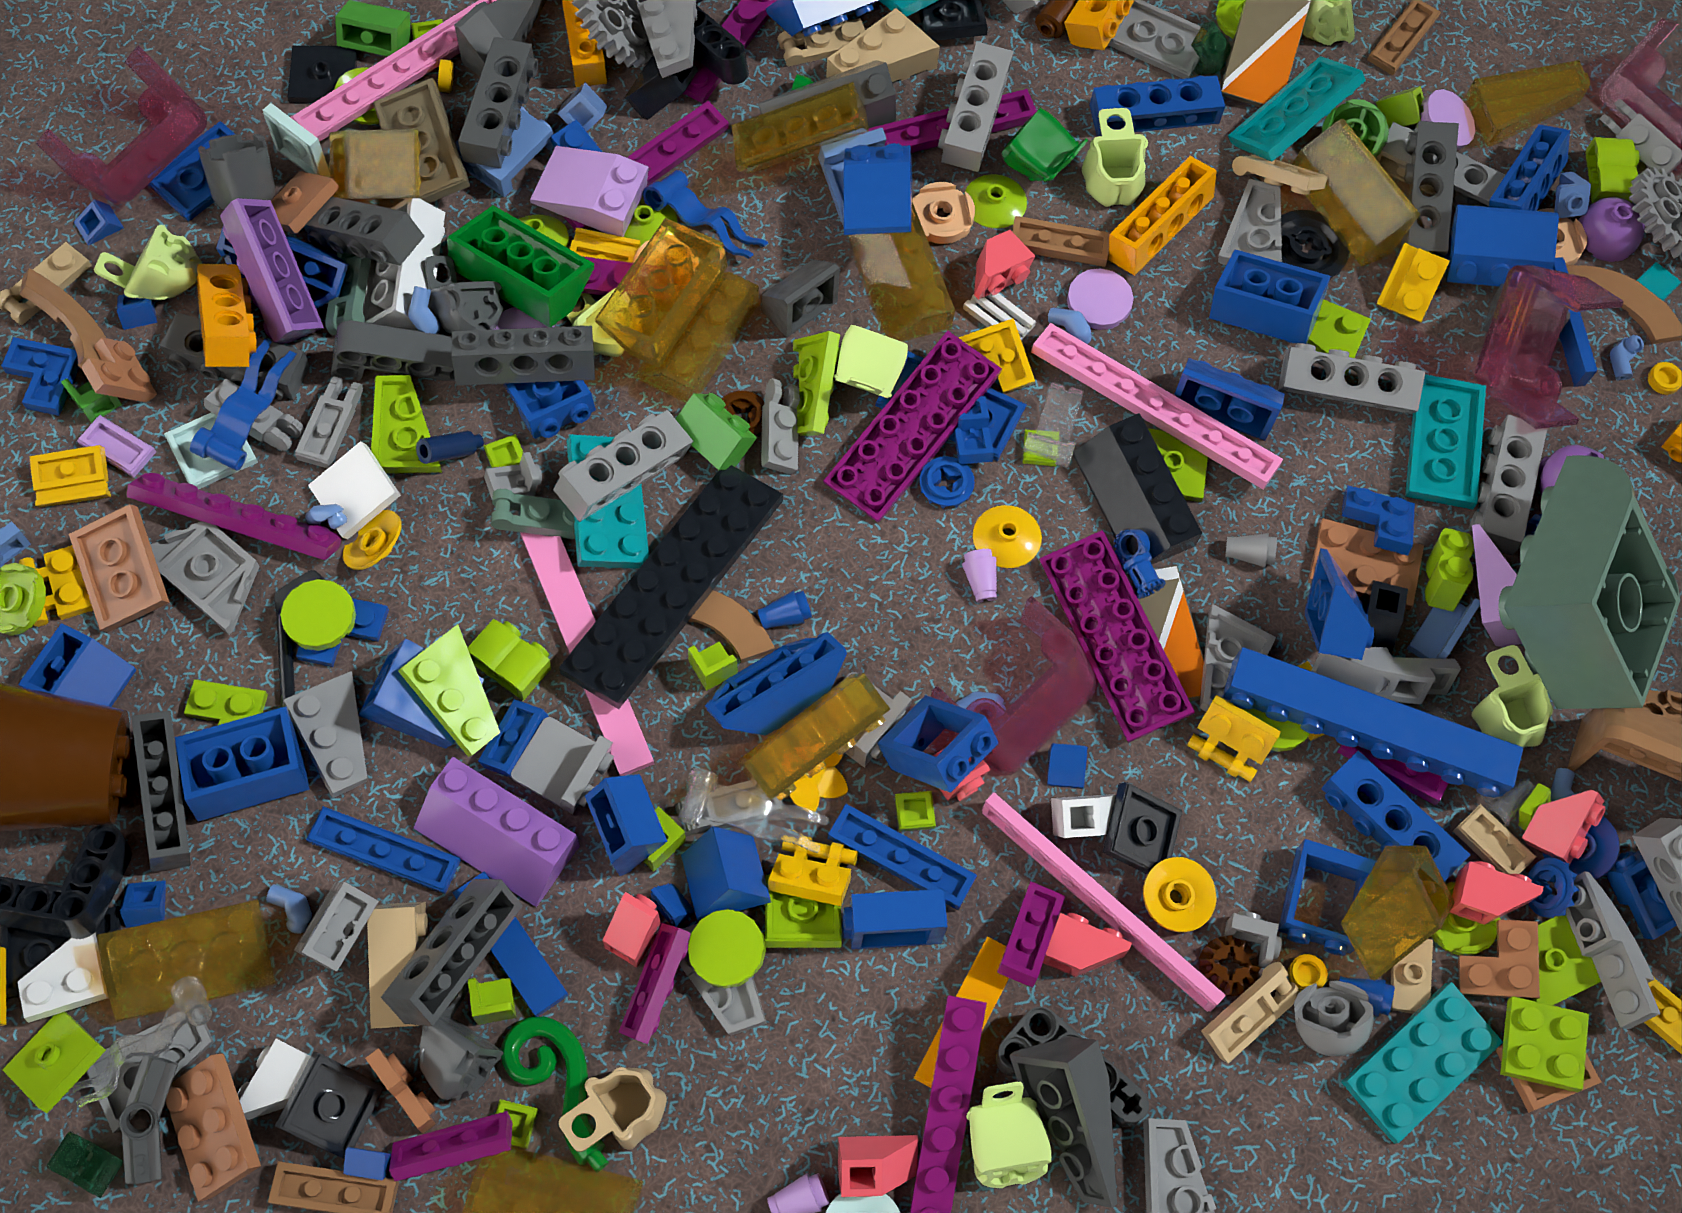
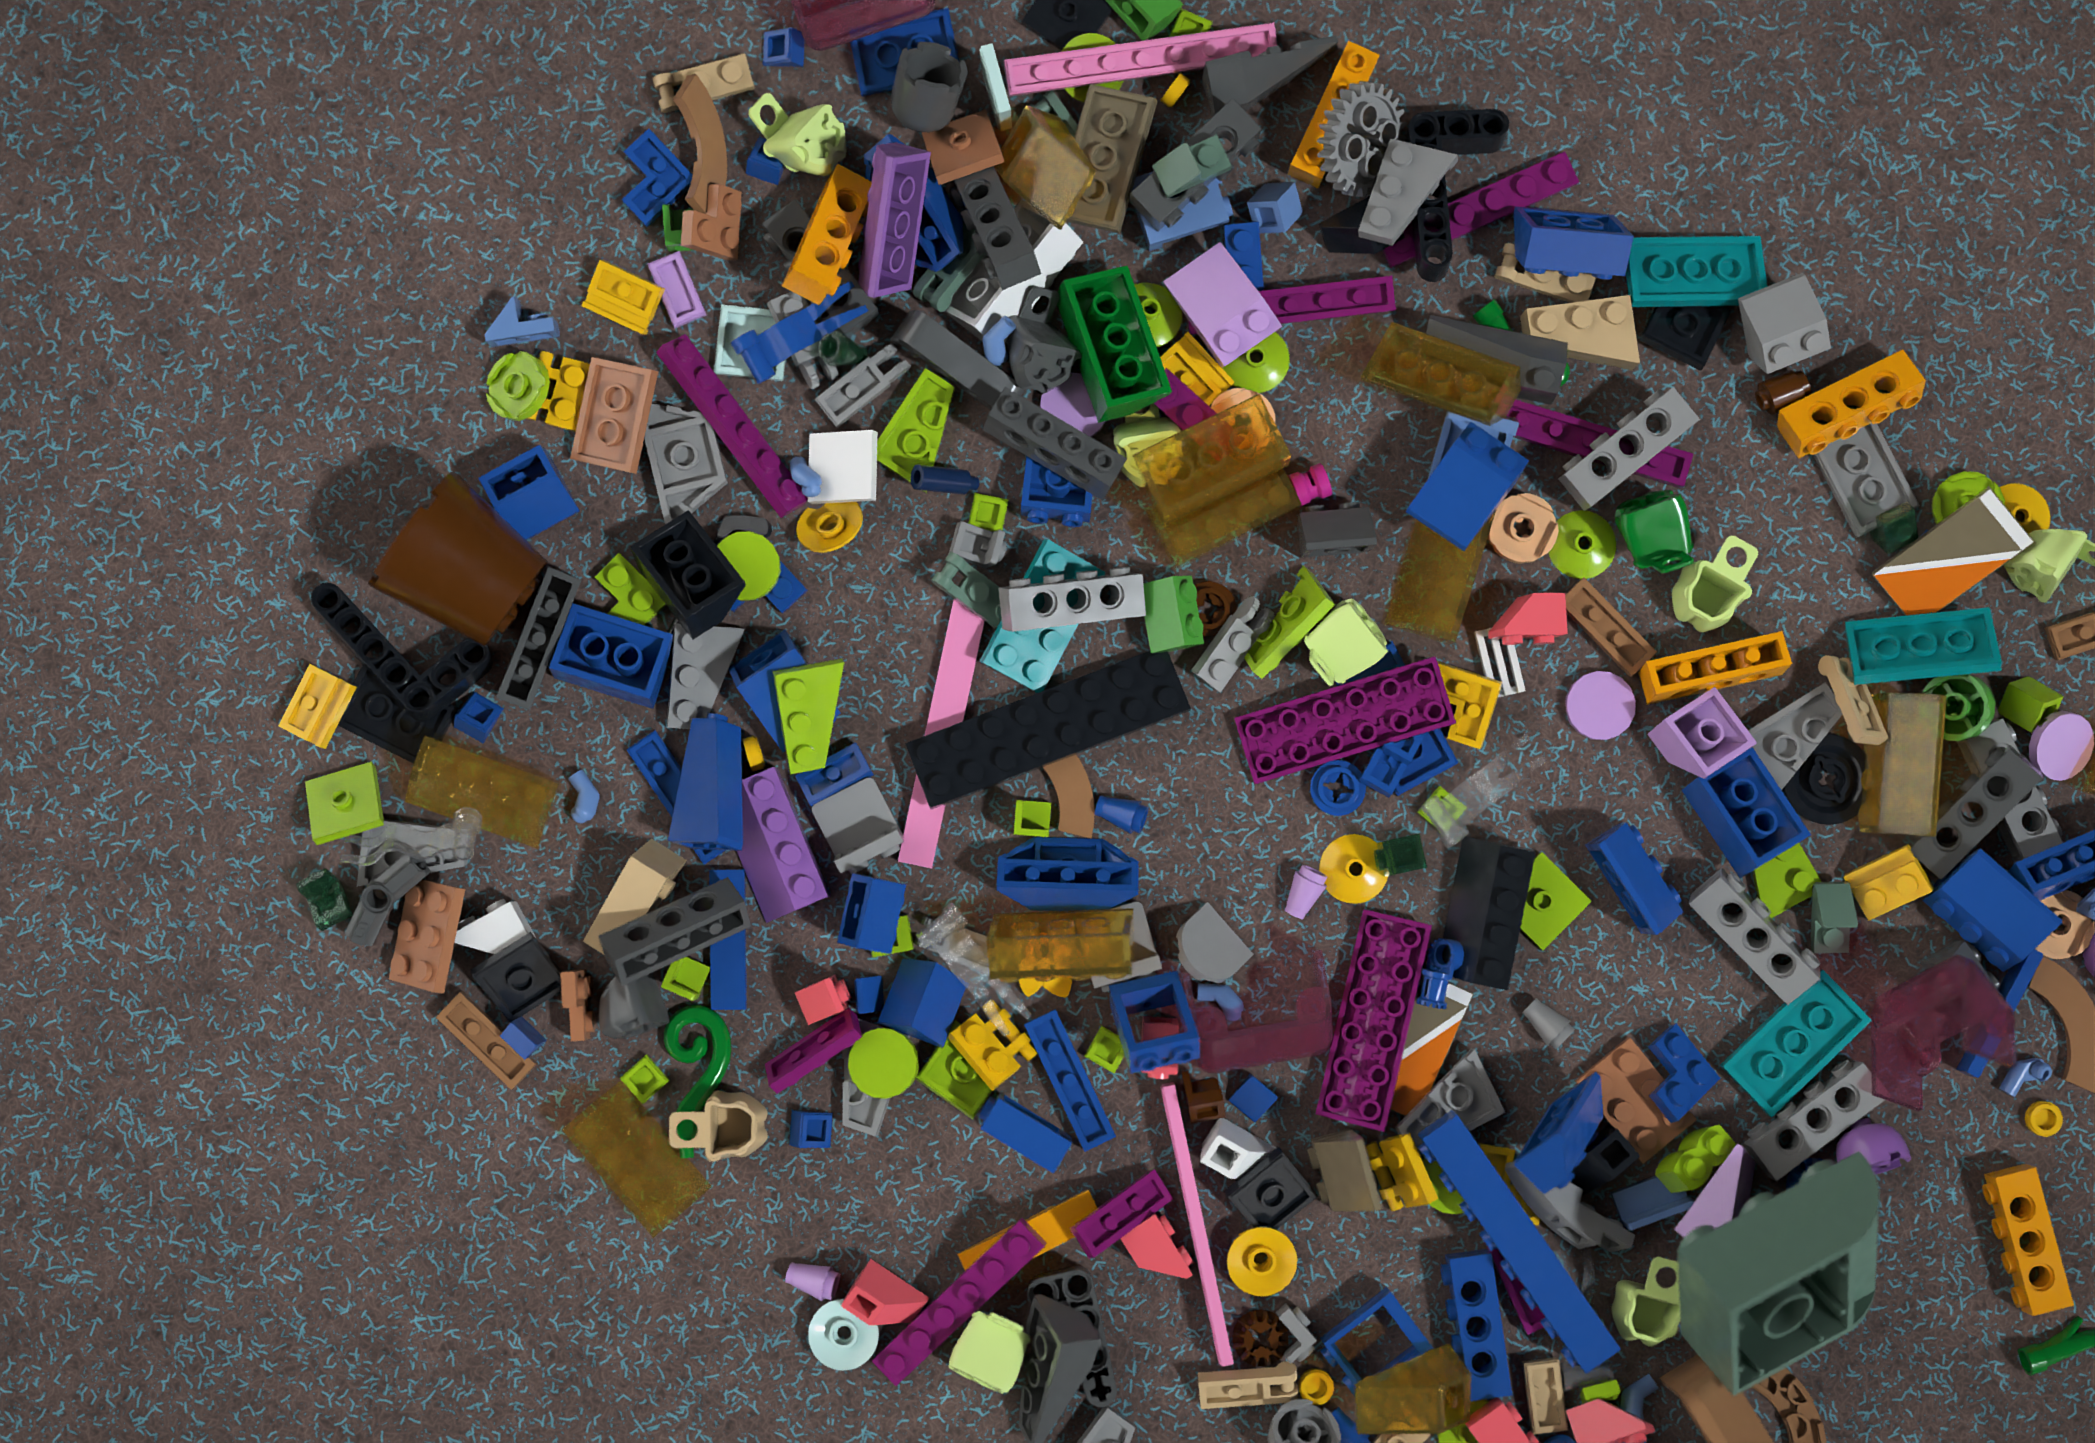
camera: 40 degrees right, 20 degrees up
(64, 980) = (385, 743): white wing -> none
(269, 648) = (689, 573): none -> black slope
(291, 400) = (840, 350): none -> clear green cone
(341, 910) = (609, 839): light grey window -> none
(406, 814) = (710, 788): none -> blue slope
(426, 764) = (754, 753): none -> yellow tile
(451, 1146) = (588, 1068): magenta plate -> none
(492, 93) = (1191, 165): none -> sand green slope
(509, 659) = (873, 703): lime brick -> none
(674, 192) = (1304, 384): blue flag -> none
(700, 1062) = (810, 1129): none -> blue slope
(759, 271) = (1311, 484): none -> dark pink wheel
(938, 664) = (1210, 946): none -> light grey tile
(1028, 793) = (1203, 1099): none -> reddish brown panel
(1035, 498) = (1400, 855): none -> clear green bracket
(1073, 322) = (1557, 714): medium blue arm -> none
(1157, 406) = (1565, 844): bright pink plate -> none
(1161, 103) = (1854, 563): blue brick -> none
(1191, 265) = (1702, 735): none -> lavender slope
(1191, 760) = (1344, 1172): none -> dark tan slope
(1391, 332) = (1832, 917): none -> sand green slope

